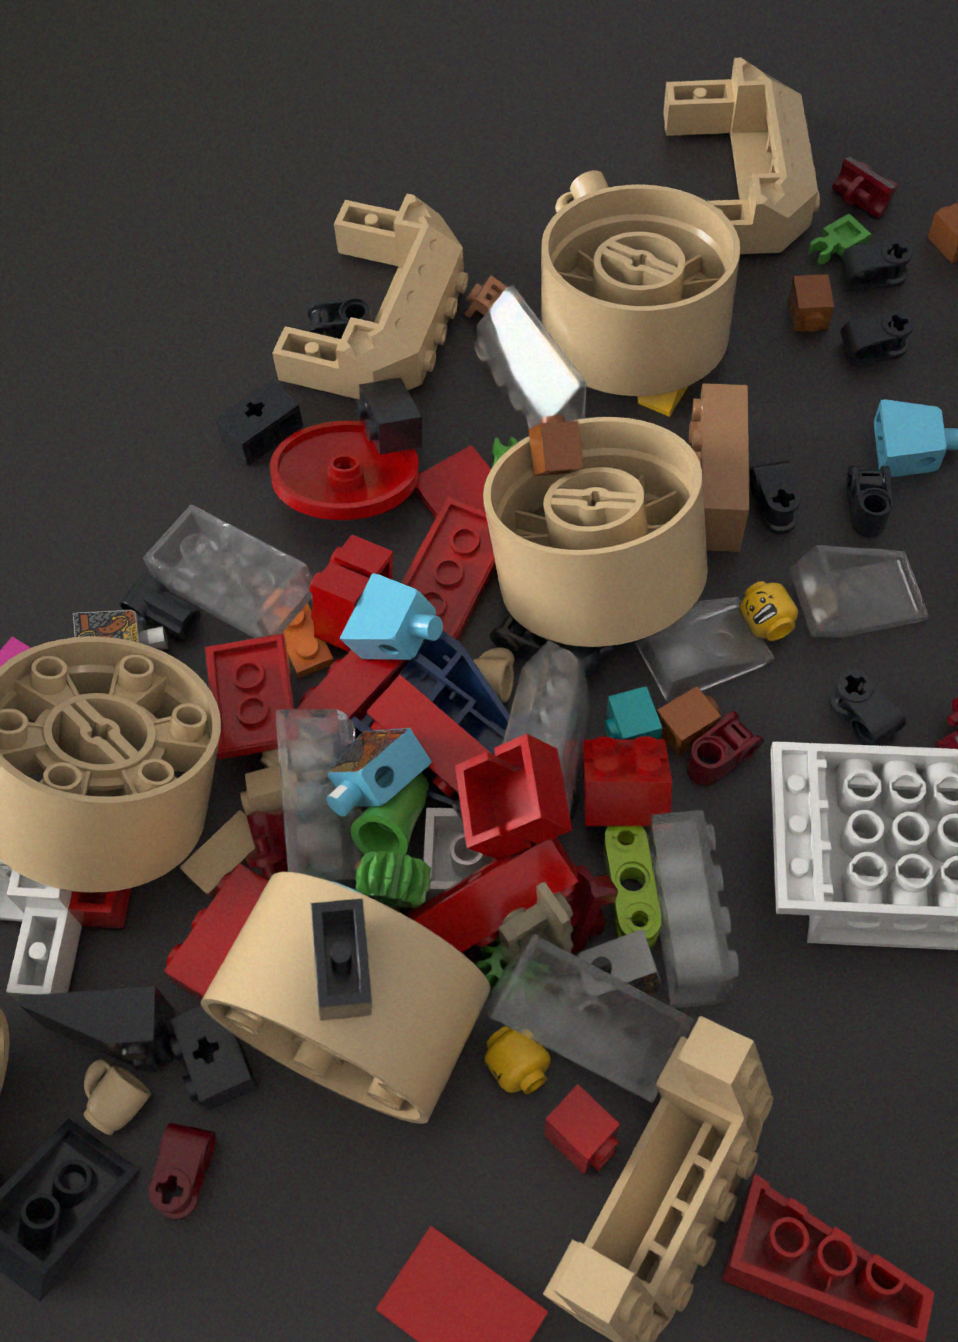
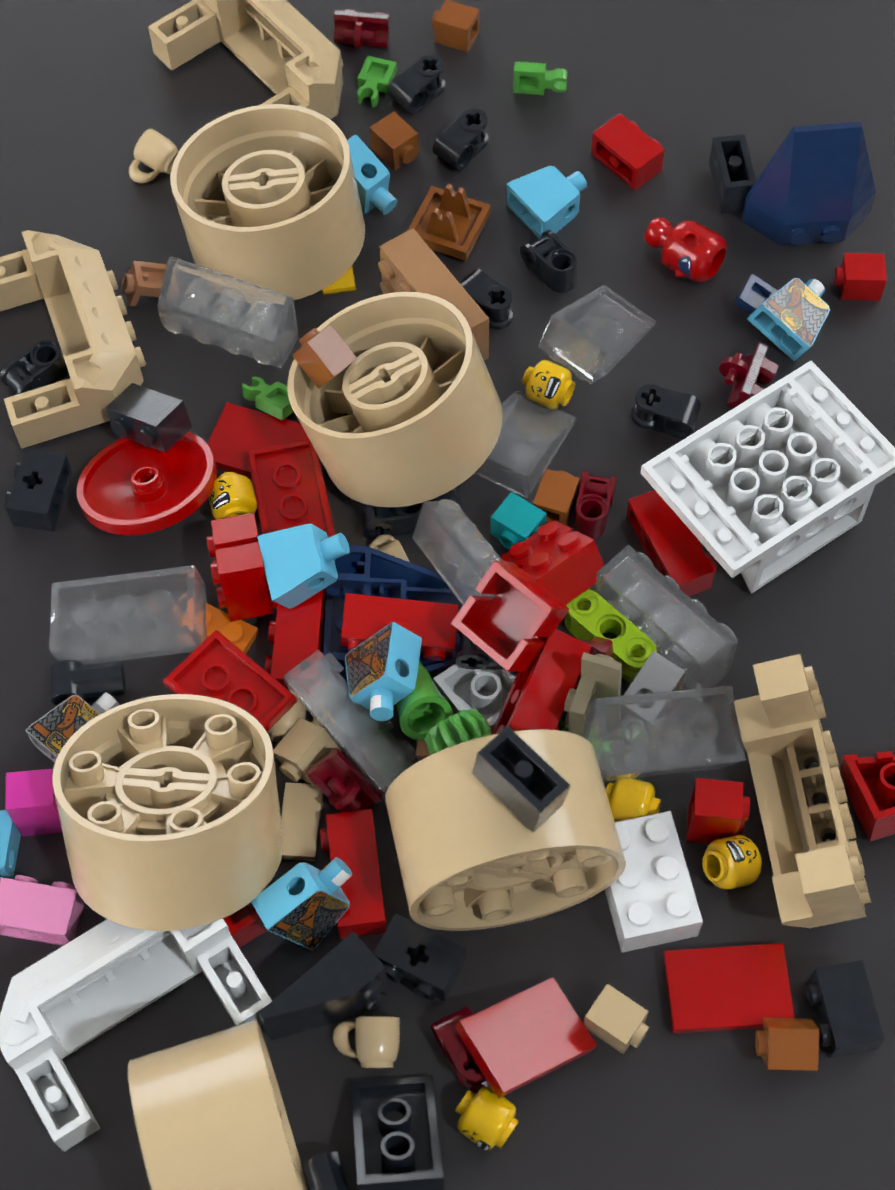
camera: 40 degrees left, 0 degrees up
(144, 1249) = (486, 1118): none -> yellow head
(145, 928) = (305, 902): none -> torso
(234, 1203) = (525, 1037): none -> tile
(330, 1255) = (617, 1020): none -> tan brick
(403, 530) = (232, 496): none -> yellow head
(467, 1146) = (654, 894): none -> white brick
(562, 1192) = (732, 862): none -> yellow head
(752, 317) = (371, 178): none -> medium azure torso
(752, 859) = (670, 543): none -> red brick
(801, 405) = (450, 221): none -> dark orange plate

